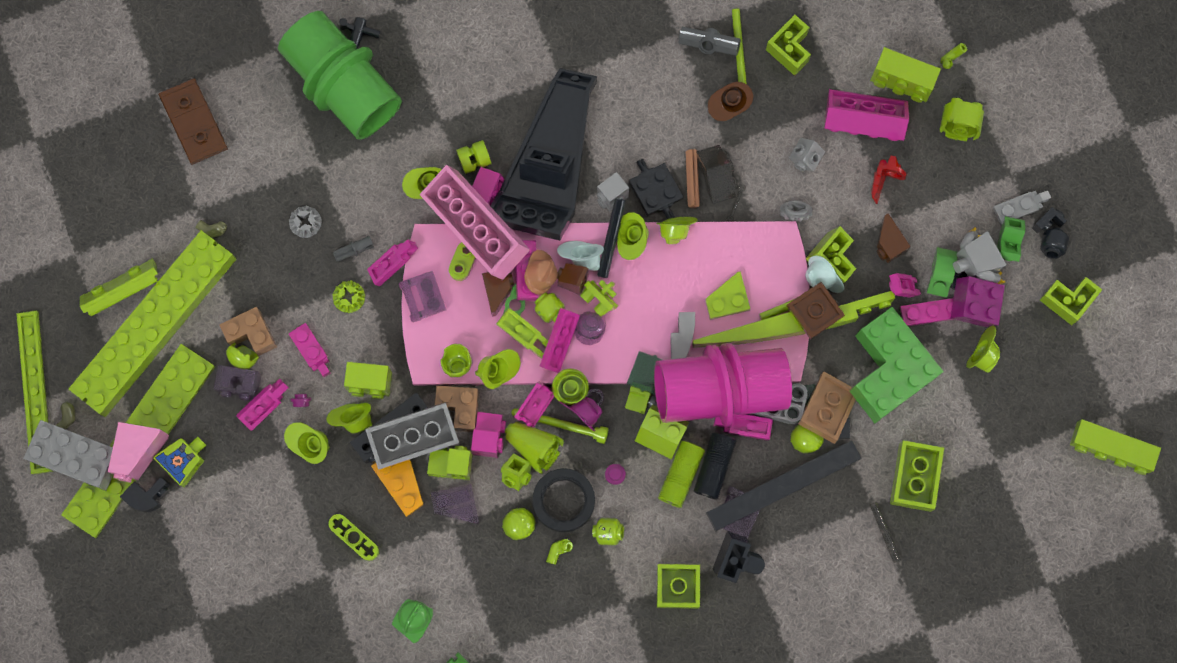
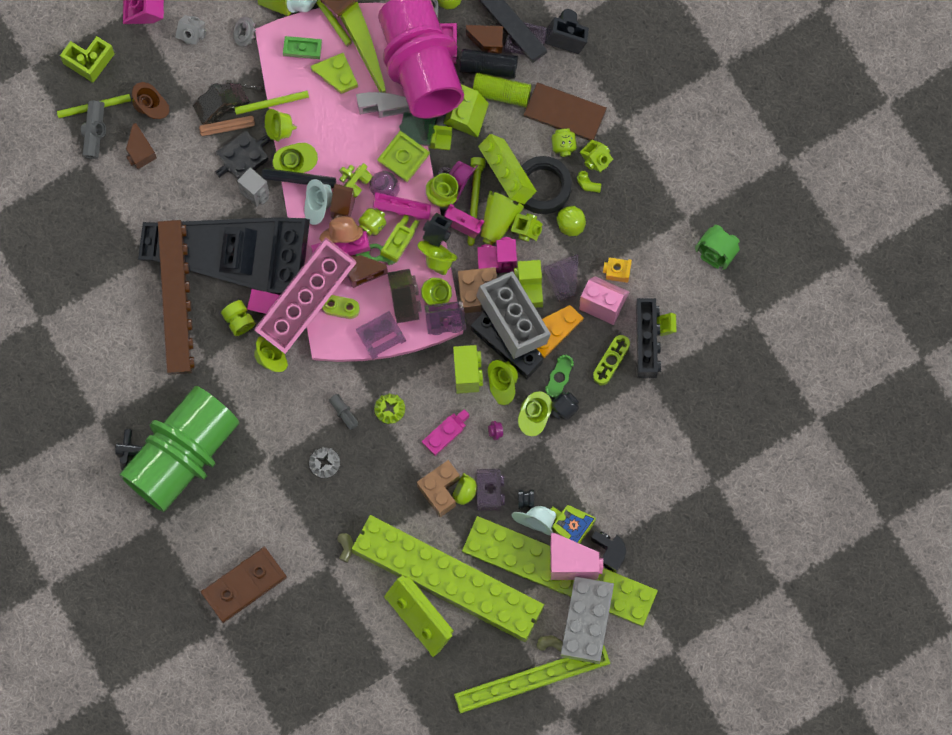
camera: 100 degrees left, 5 degrees down
(194, 427) = (537, 518): none -> light aqua piece
(220, 418) = (525, 498): none -> black wheel
(262, 404) = (505, 463): dark pink hinge -> none
(311, 477) = (564, 406): none -> black head
(335, 471) = (563, 366): none -> bright green piece
(365, 578) = (646, 335): none -> black brick
(380, 604) = (667, 324): none -> lime plate
(391, 261) = (352, 371): dark pink hinge -> none
(413, 619) = (673, 296): bright green piece -> none
(420, 541) = (603, 299): none -> bright pink slope
(425, 364) = (437, 313): none -> clear purple brick
(452, 570) = (617, 275): none -> yellow brick
(458, 324) = (403, 293): none -> clear smoke brick
(505, 95) = (174, 295): none -> reddish brown brick
(524, 373) = (437, 230): none -> black brick
(581, 566) = (596, 156): none -> lime brick
(582, 461) = (507, 169): none -> lime brick
(615, 474) = (514, 145): magenta plate -> none
(618, 353) = (403, 156): none -> lime plate
(646, 541) = (565, 111): none -> reddish brown tile
(678, 586) = (600, 76): lime brick -> none
(681, 84) = (139, 149): none -> reddish brown slope
(706, 225) = (271, 102): none -> lime bar
(745, 470) = (486, 37): none -> reddish brown slope
(763, 266) = (302, 47): none -> bright green plate

